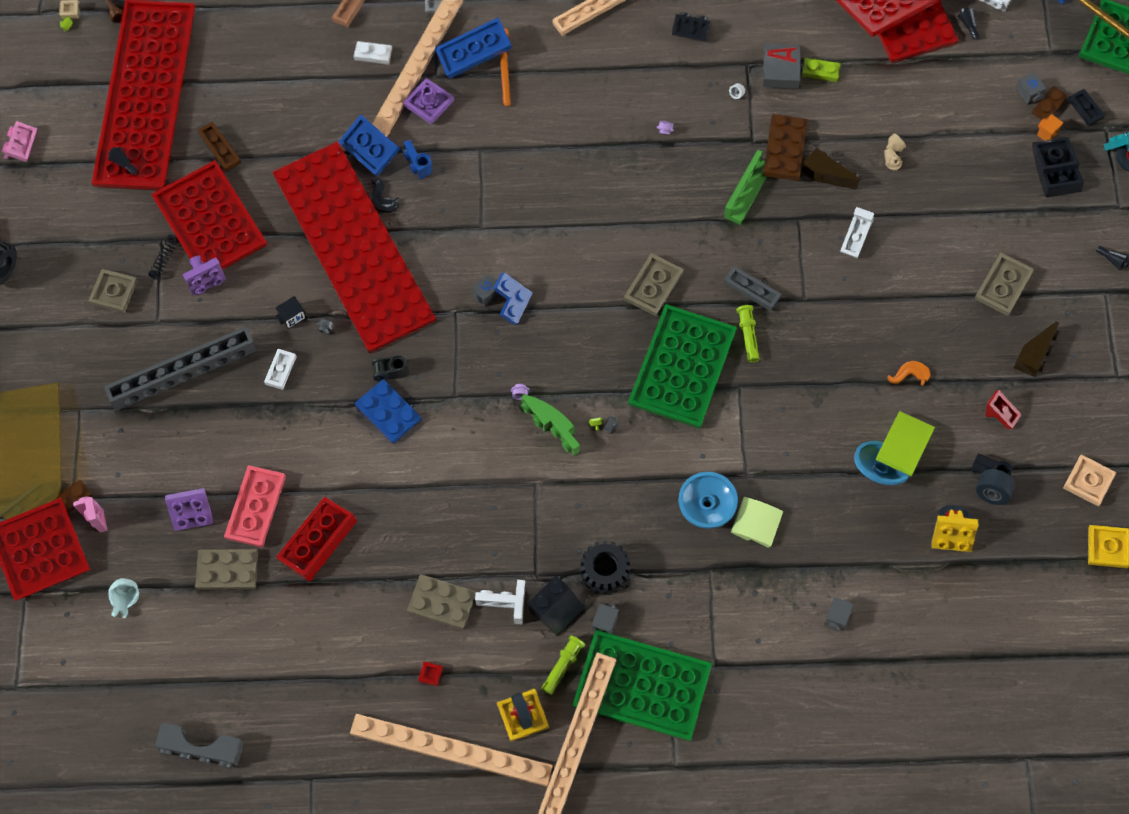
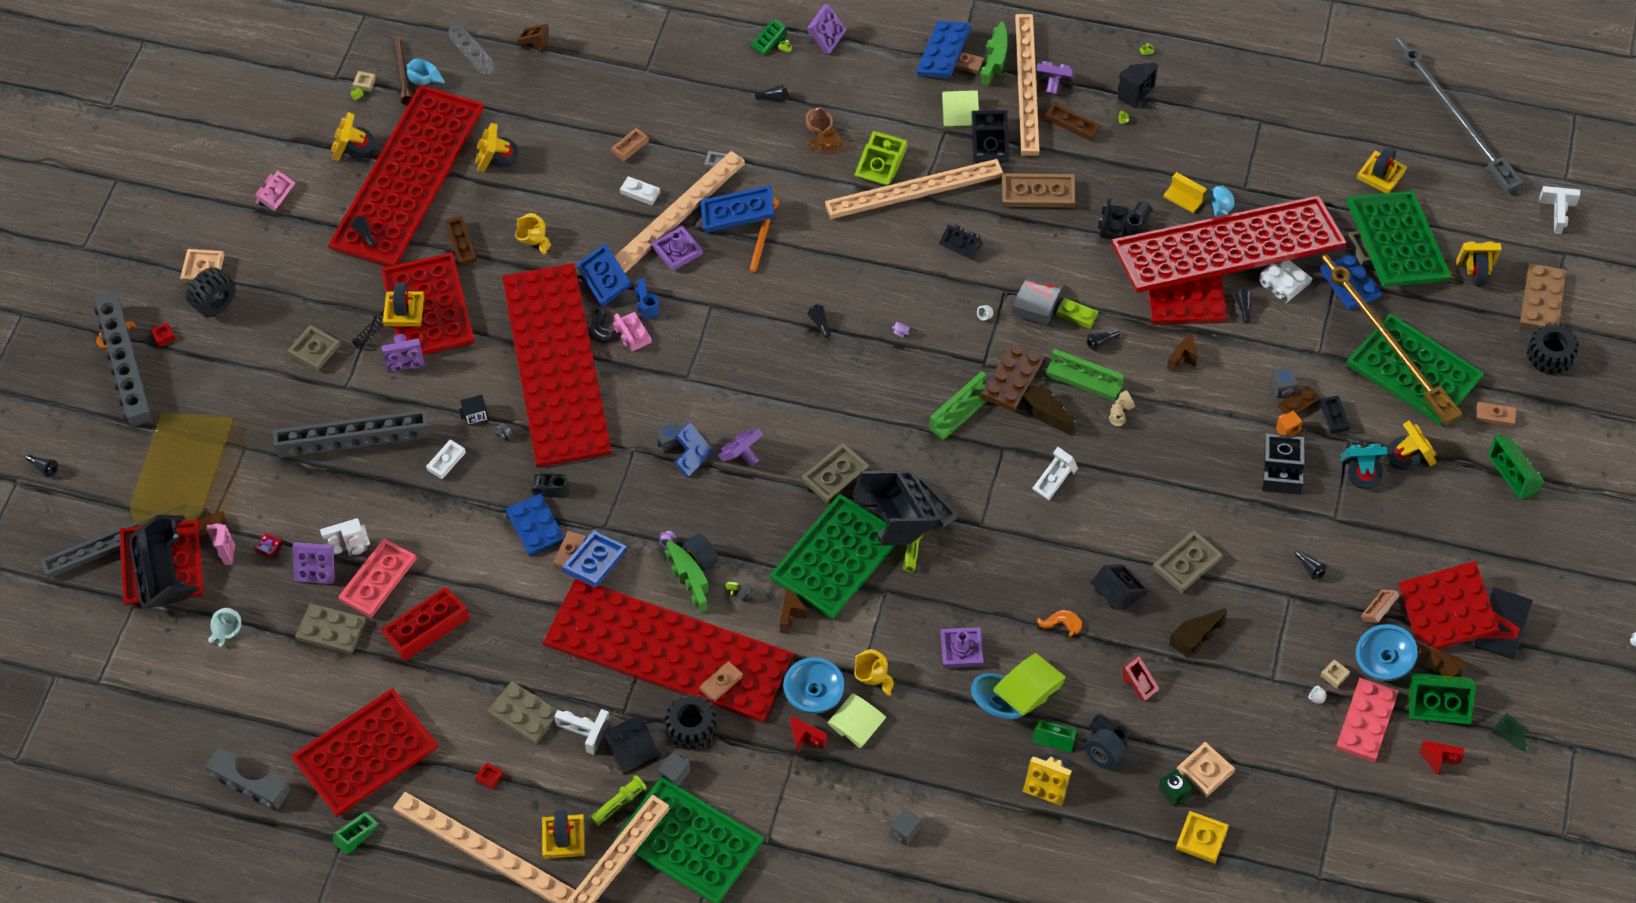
camera: 15 degrees right, 10 degrees down
(34, 555) = (155, 563): none -> black windscreen
(79, 71) = (354, 140): none -> yellow plate
(137, 502) = (268, 545): none -> red tile
(188, 228) = (403, 307): none -> yellow plate
(216, 472) = (346, 536): none -> white plate
(221, 46) = (495, 149): none -> yellow plate
(285, 120) = (532, 232): none -> yellow hair
(303, 685) = (364, 752): none -> red plate
(319, 784) = (345, 841): none -> green slope
(414, 194) = (632, 331): none -> bright pink bracket
(430, 428) = (569, 545): none -> nougat plate
(457, 431) = (594, 559): none -> plate
(556, 396) = (701, 551): none -> black wheel
(557, 500) = (667, 648): none -> red plate
(559, 282) = (741, 447): none -> medium lavender plate
(584, 133) = (818, 315): none -> black cone
(620, 520) = (721, 681): none -> nougat plate
(659, 430) = (791, 608): none -> reddish brown slope
(710, 547) = (802, 731): none -> red slope
(729, 300) = (900, 502): none -> black windscreen
(755, 469) = (872, 669): none -> yellow hair
(828, 424) = (961, 640): none -> medium lavender plate
(849, 91) = (1097, 340): none -> black cone
(849, 130) = (1085, 377): none -> bright green fence
(934, 82) = (1184, 352): none -> reddish brown slope
(942, 485) = (1054, 736): none -> green slope
(951, 325) = (1118, 586): none -> black slope
(1069, 506) = (1175, 787): none -> dark green brick

